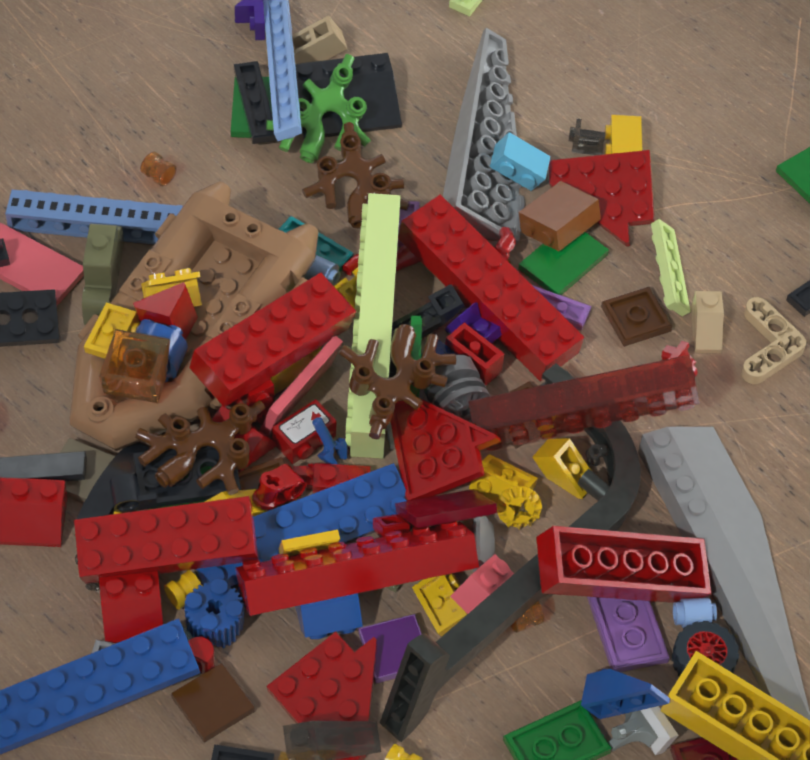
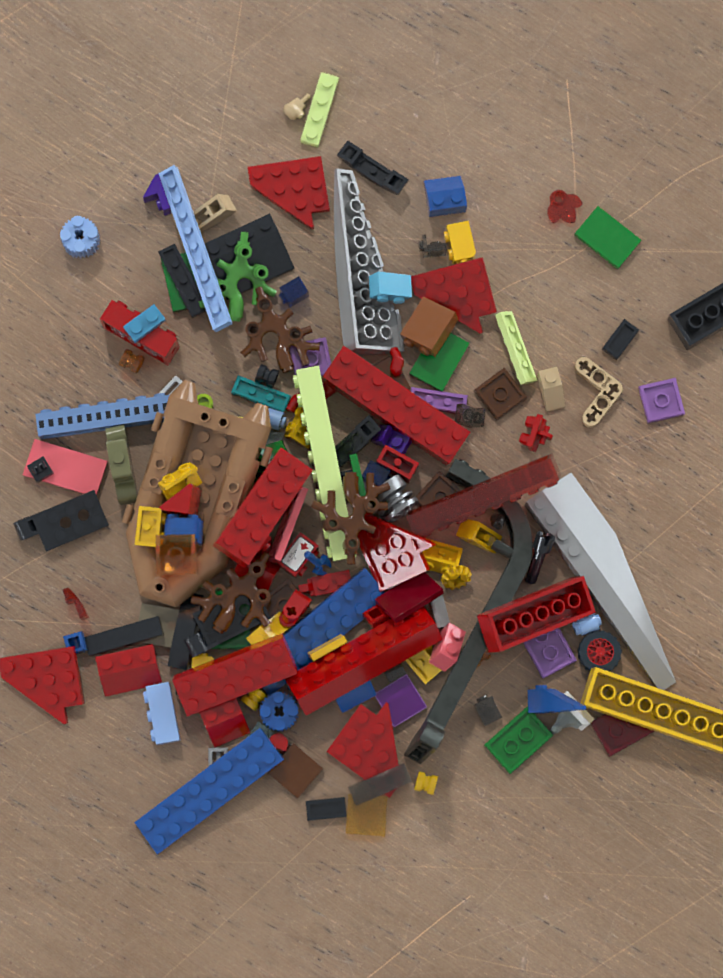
camera: 15 degrees left, 25 degrees up
(46, 578) = (162, 713): none -> light blue brick
(141, 30) = (80, 227): none -> light blue brick
(180, 136) = (158, 343): none -> red brick
(188, 114) = (144, 323): none -> dark azure plate
(329, 223) = (265, 375): none -> black wheel
(393, 144) = (293, 292): none -> clear blue brick
(396, 604) = (395, 673): none -> clear smoke tile
(425, 45) = (293, 186): none -> red wing
(520, 690) = (487, 710): none -> clear smoke bracket
(528, 47) = (371, 169): none -> black slope
(588, 326) = (470, 416): none -> clear smoke bracket
(617, 95) = (445, 196): none -> blue slope
(649, 497) = (542, 546): none -> black piece
(768, 137) = (564, 209): none -> clear red plate

